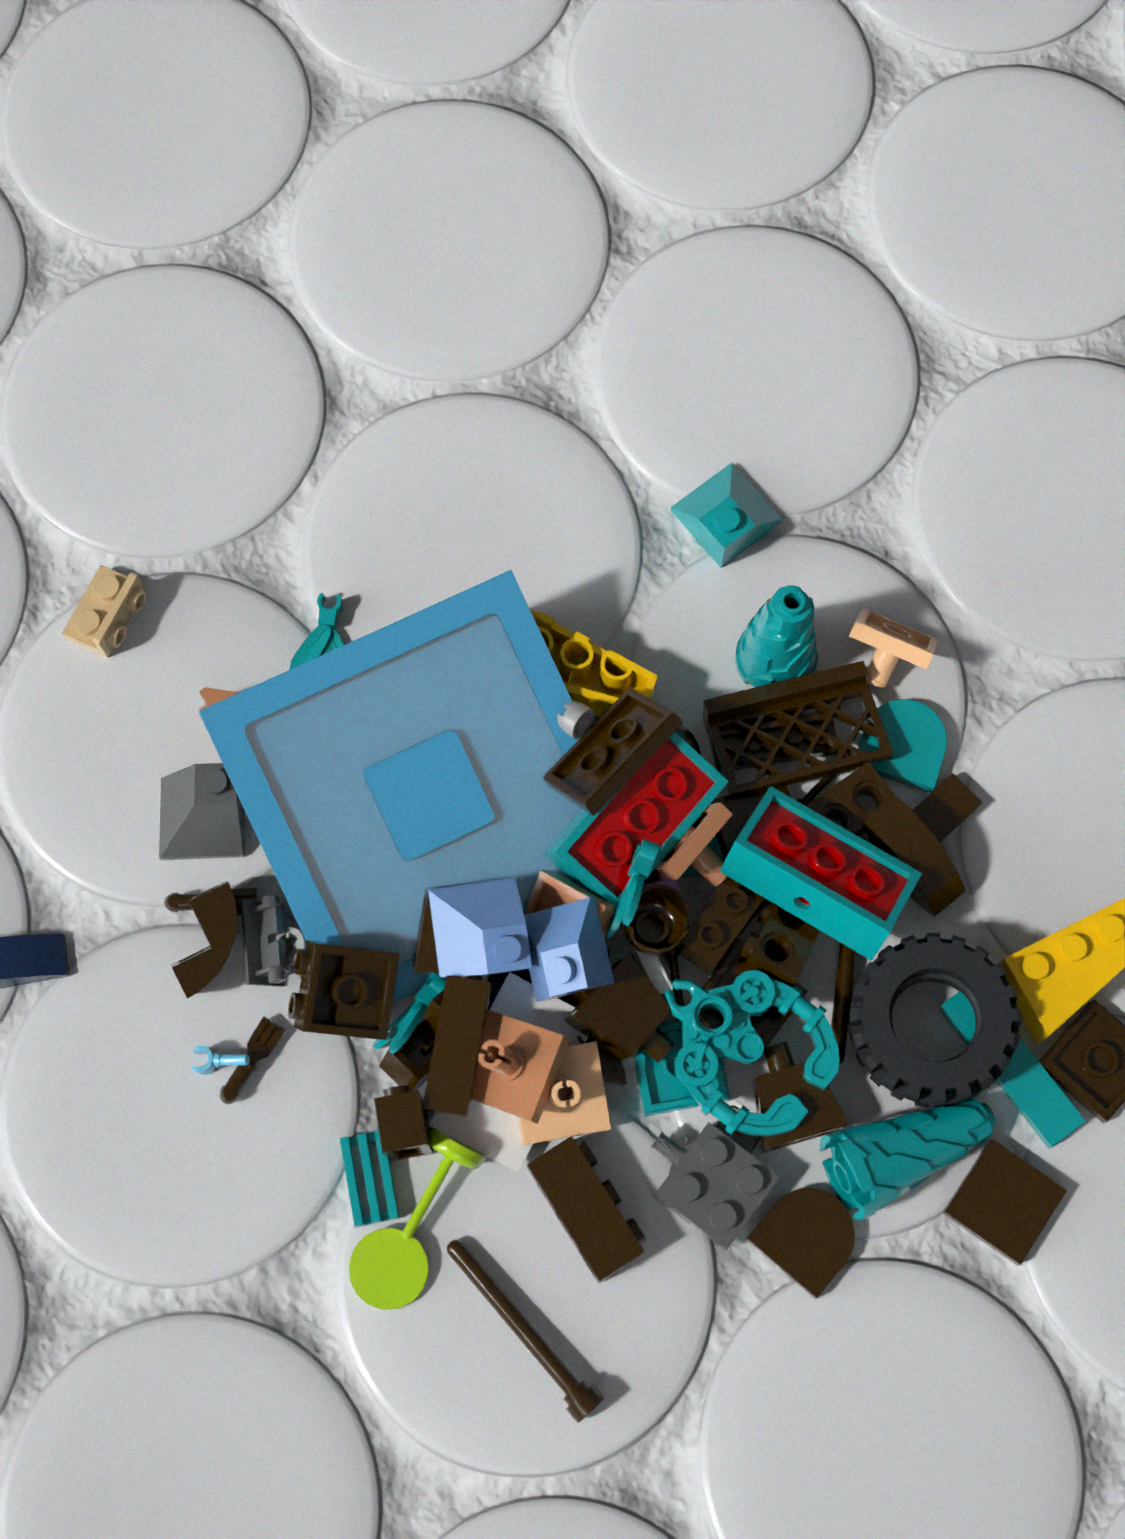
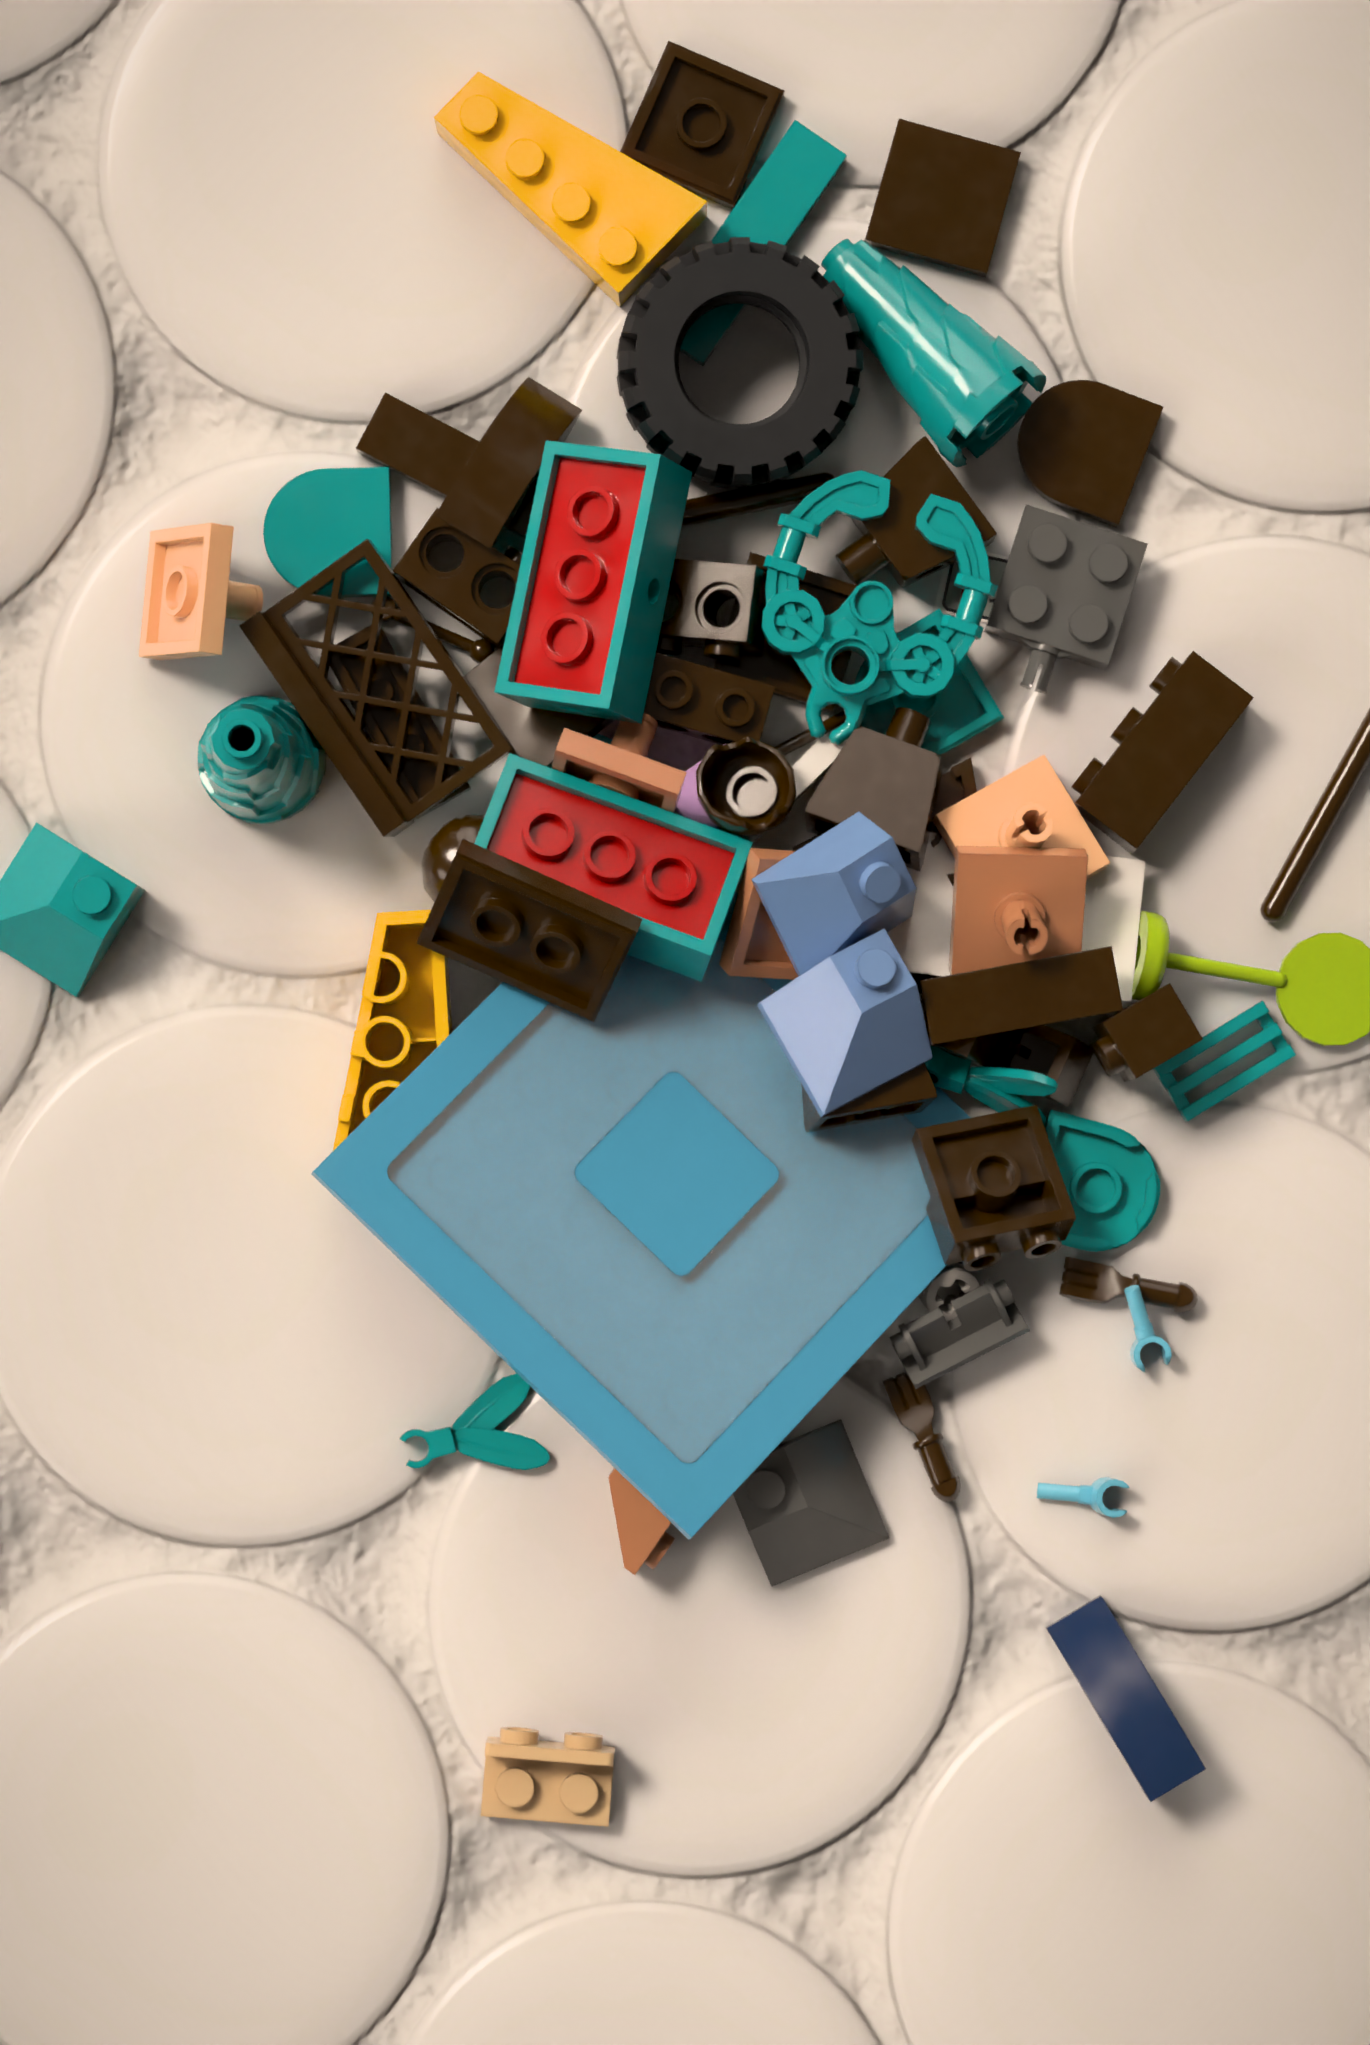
camera: 110 degrees left, 15 degrees up
(132, 988) = (1083, 1494): none -> medium azure hand
(218, 920) = (953, 1407): dark brown brick -> none
(324, 1068) = (1107, 1181): none -> teal tile
(576, 719) = (494, 1000): light grey hinge -> none
(639, 872) = (731, 828): teal piece -> none

